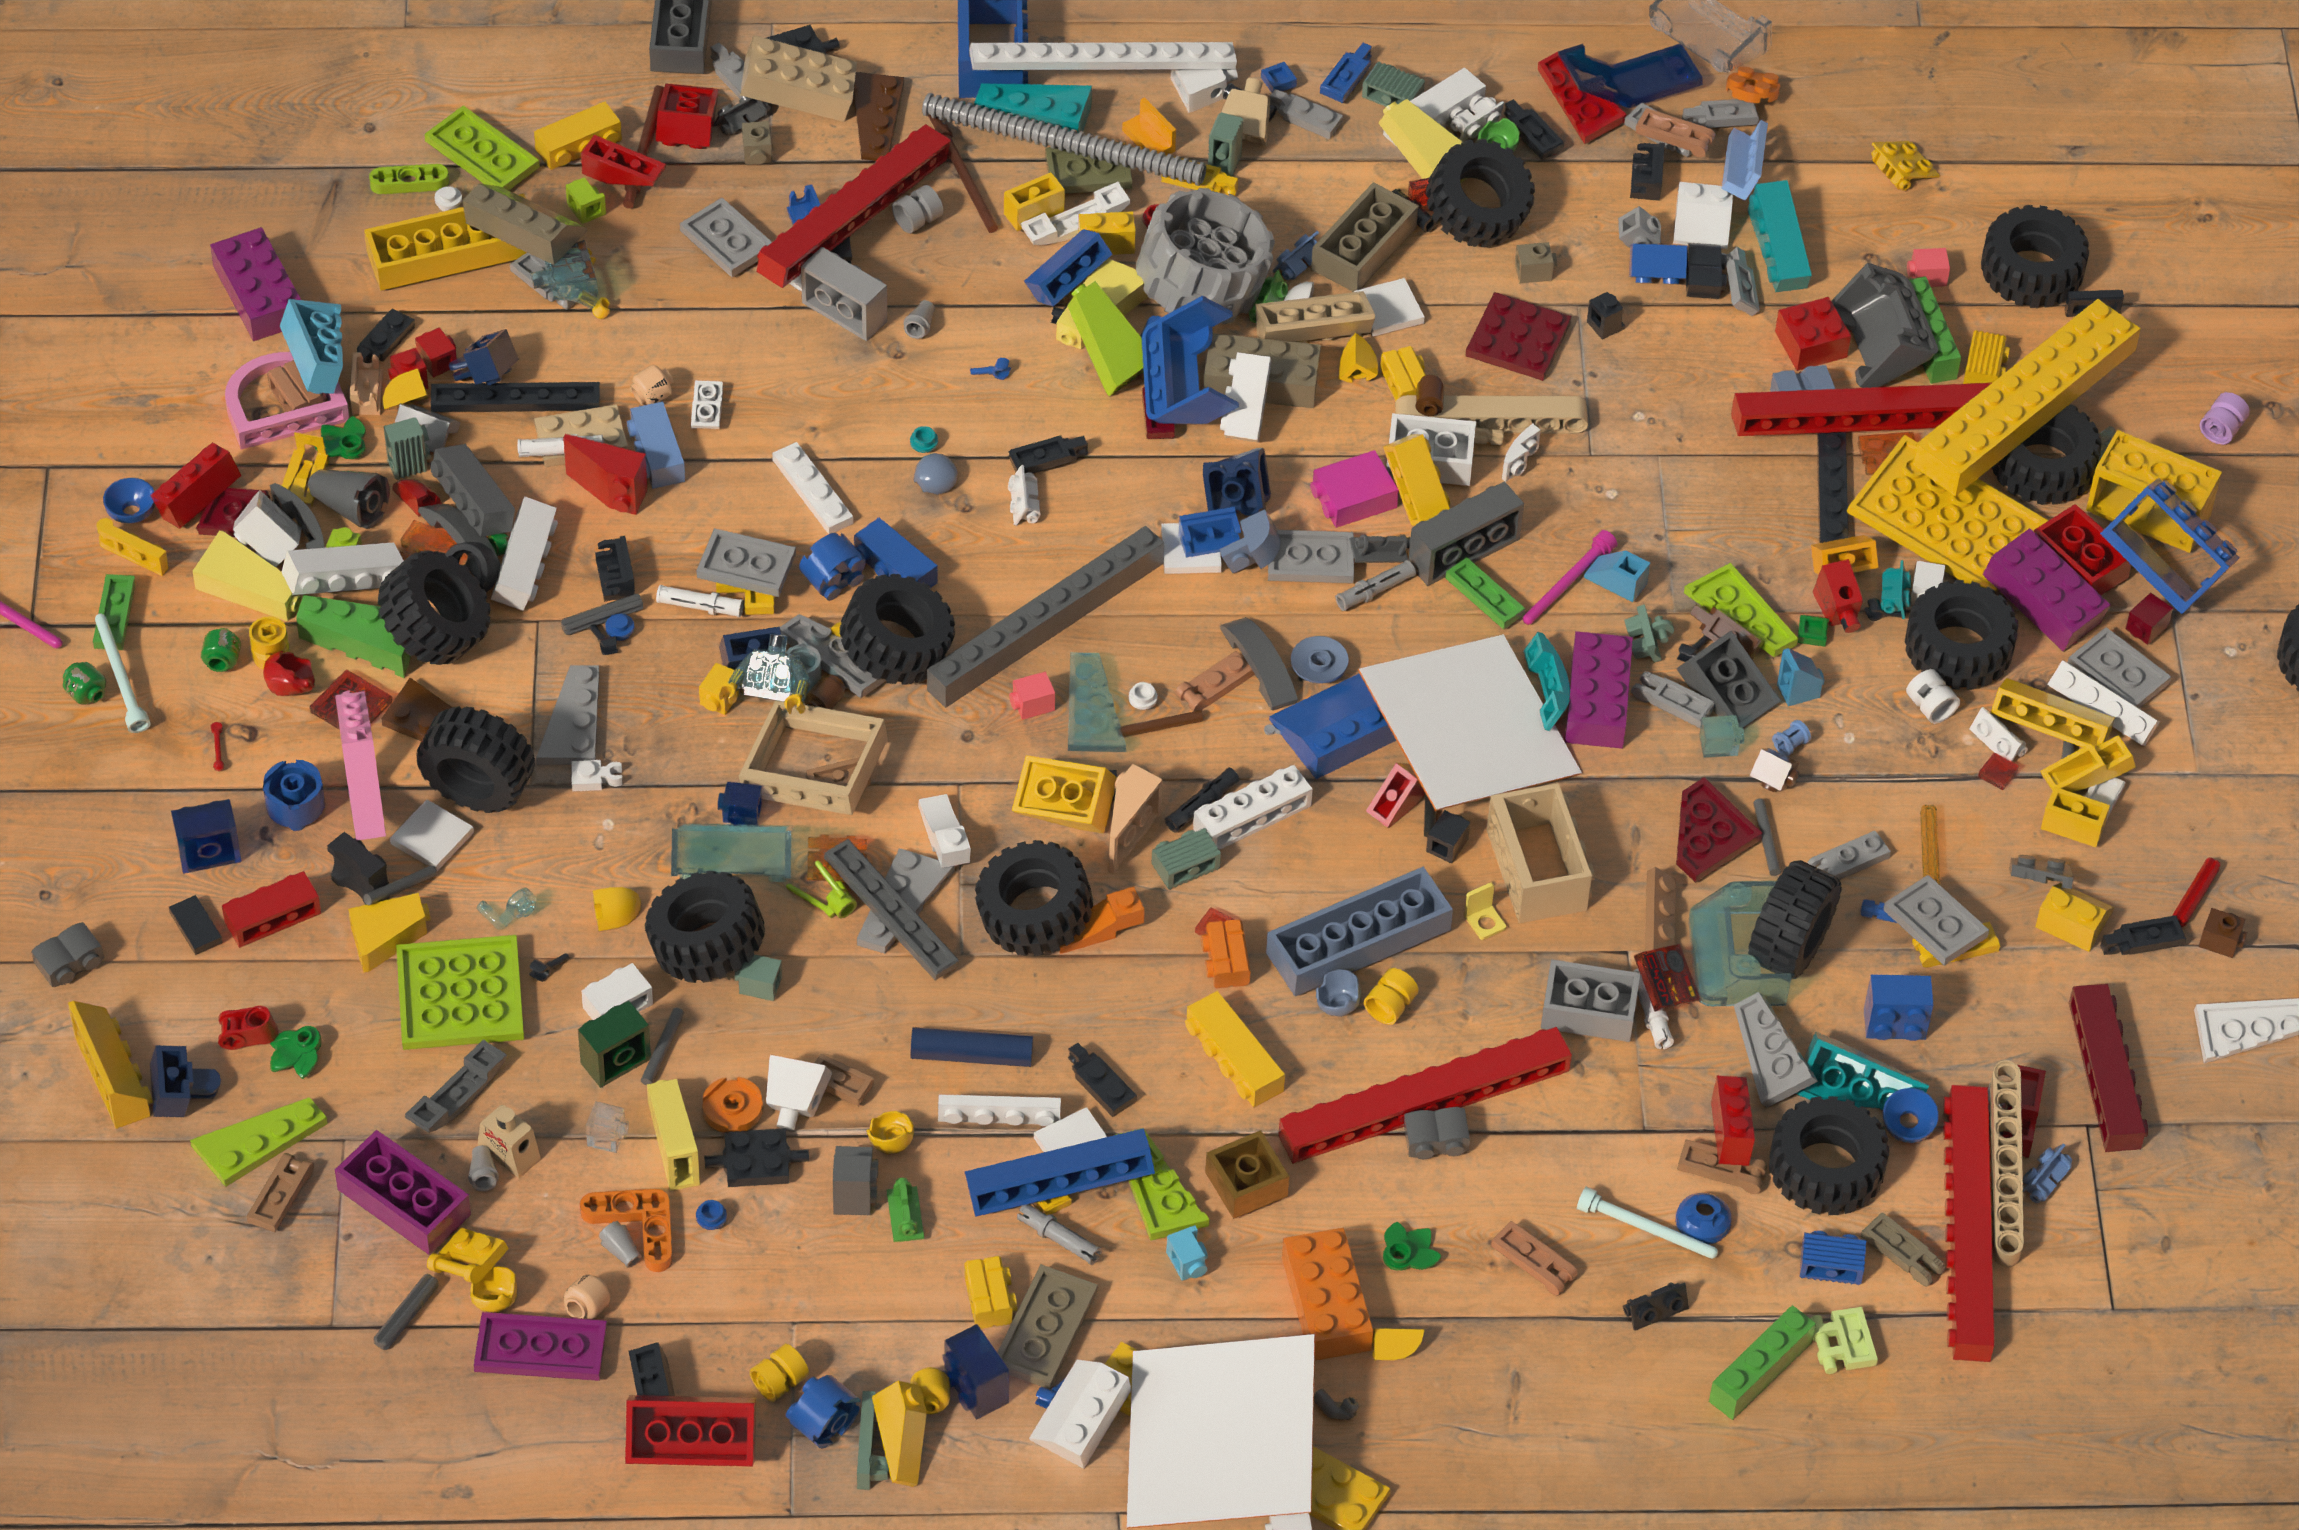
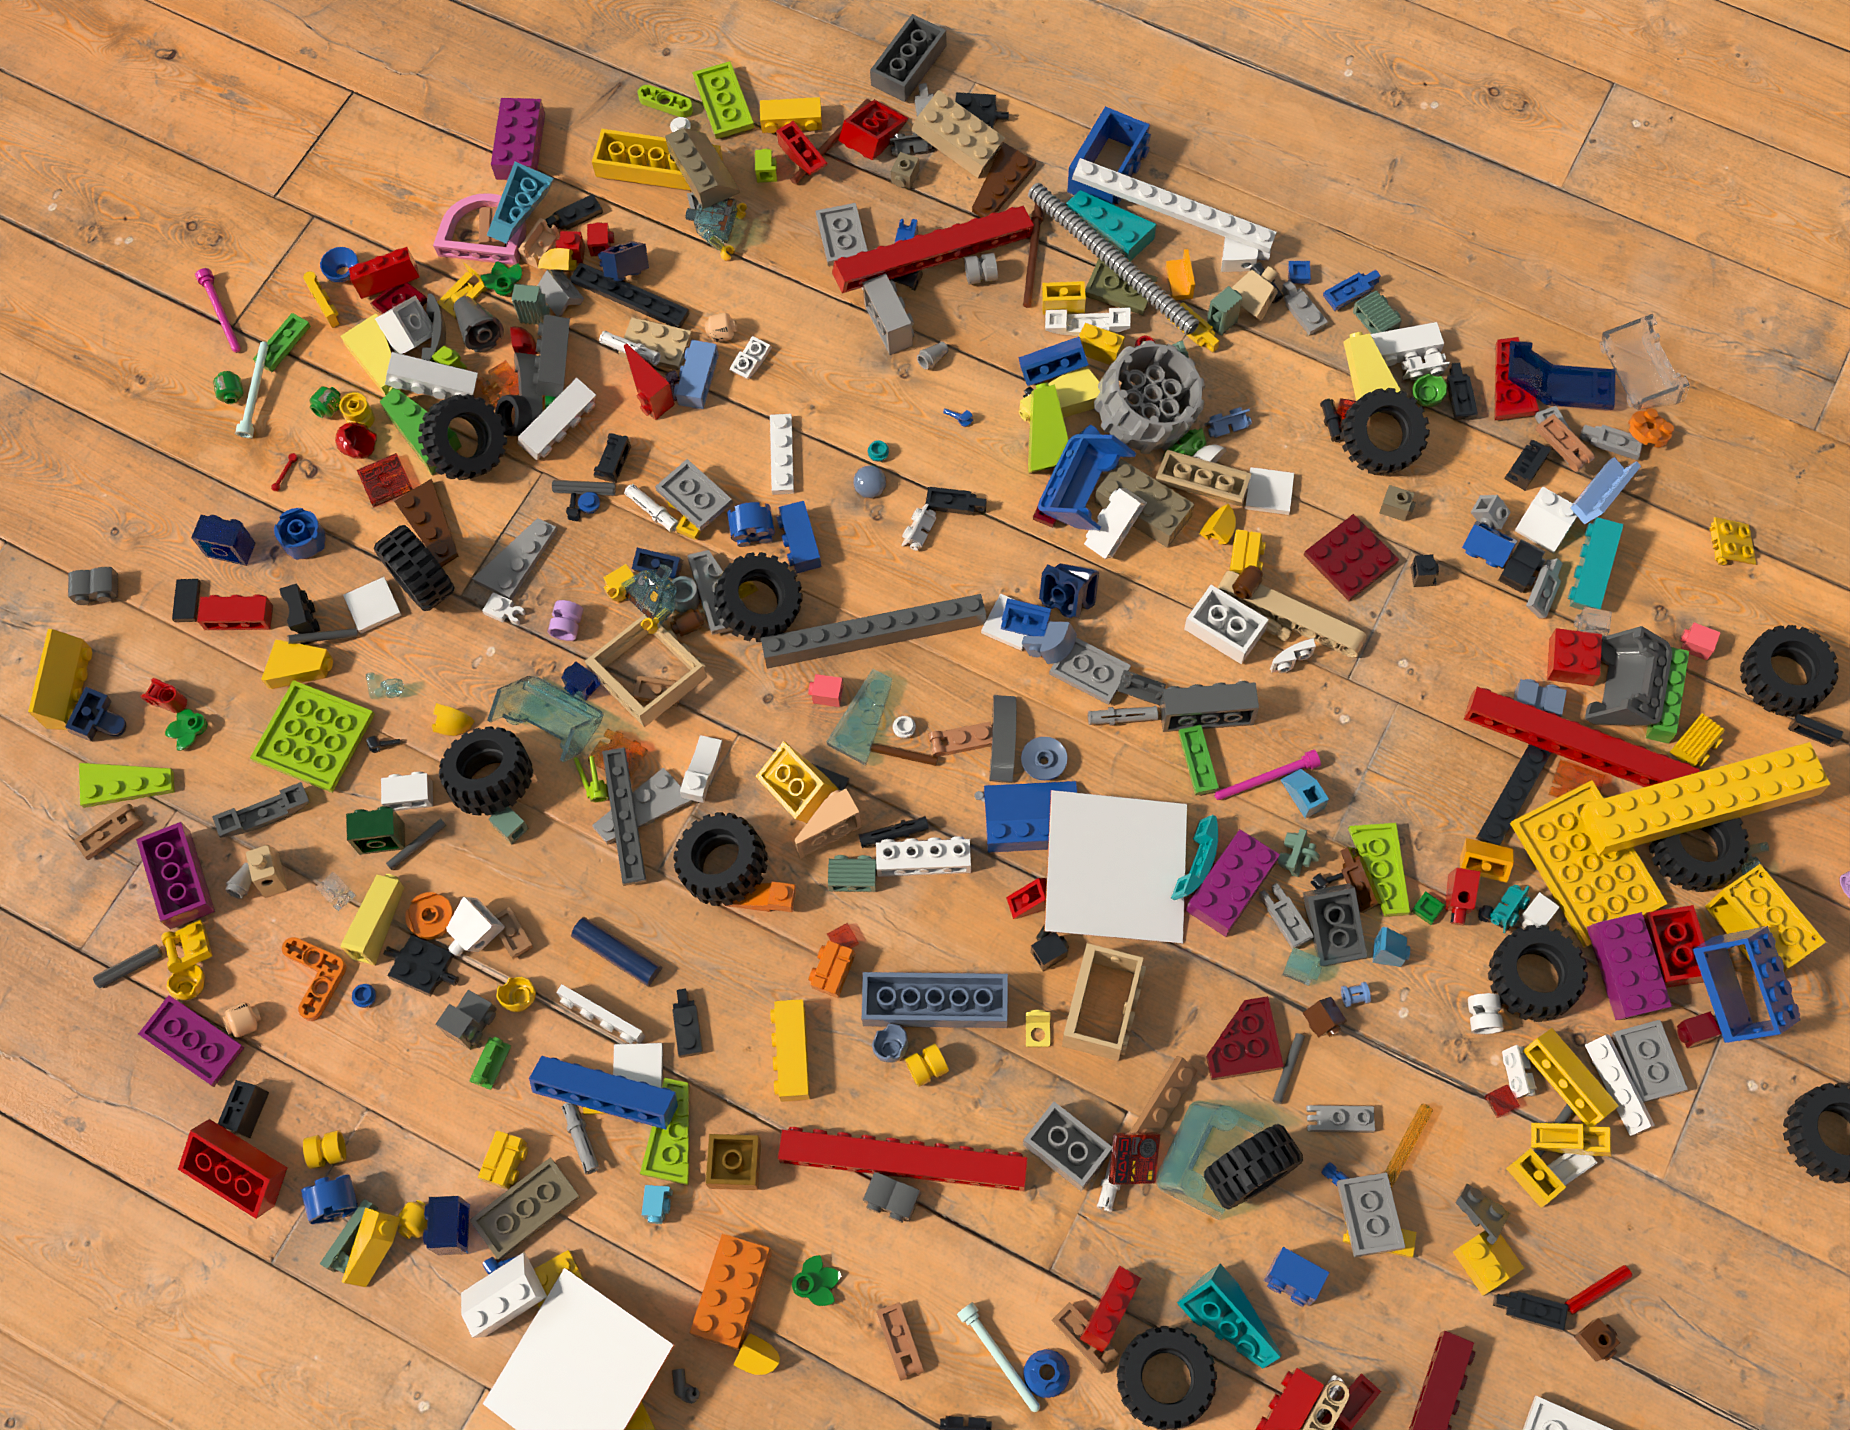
camera: 35 degrees right, 15 degrees up
(360, 765) = (319, 577): bright pink window -> none
(619, 1243) = (290, 987): light grey cone -> none
(681, 751) = (565, 620): none -> lavender wheel
(1354, 489) = (1153, 629): dark pink brick -> none
(1364, 237) = (1281, 428): dark tan brick -> none
(1417, 478) = (1197, 647): yellow brick -> none
(1772, 1054) = (1177, 1265): light grey wing -> none
(1810, 289) = (1593, 621): none -> clear brick
(1912, 1102) = (1251, 1389): blue piece -> none

